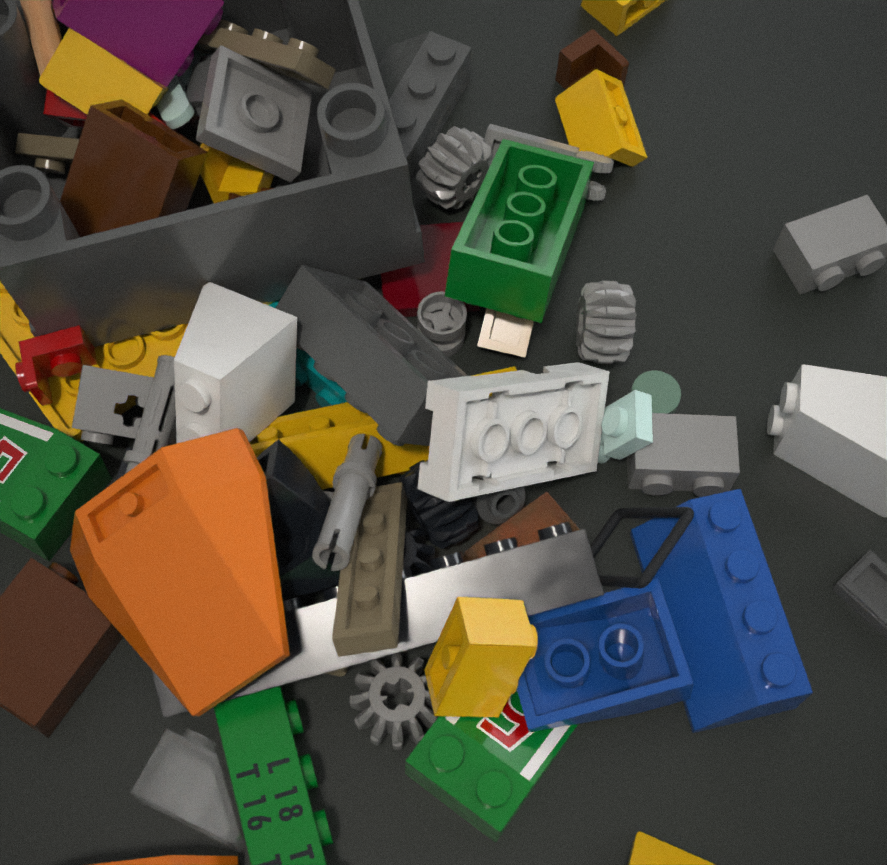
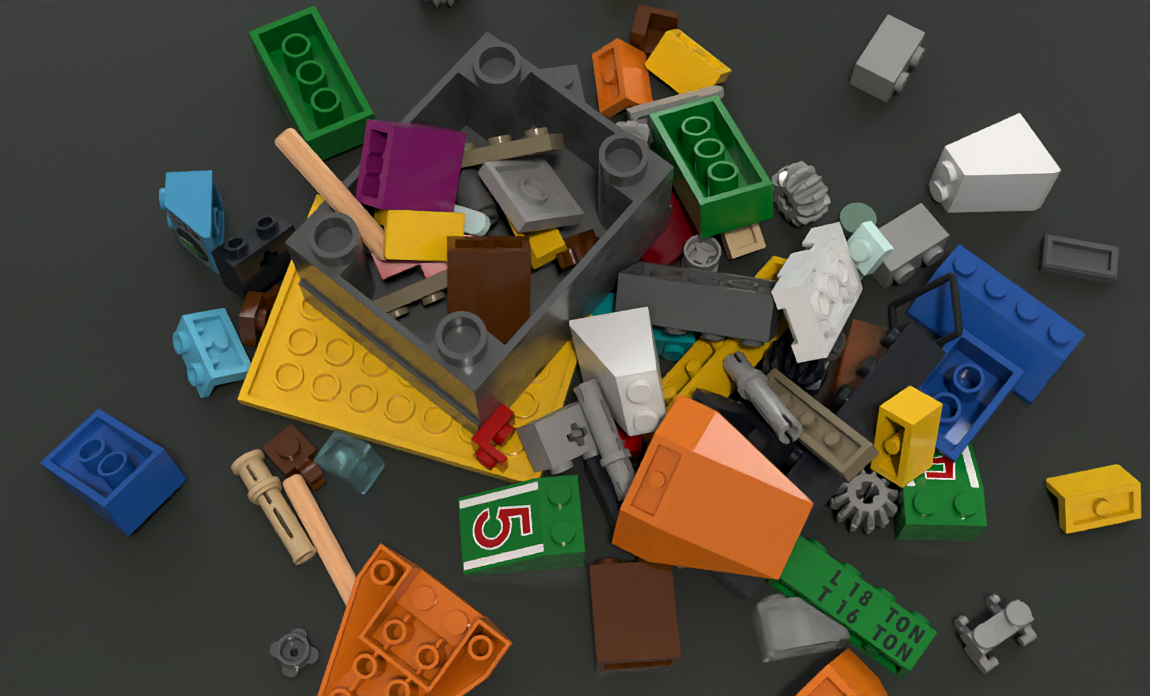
camera: 35 degrees left, 0 degrees up
(521, 95) = (620, 77): none -> orange panel

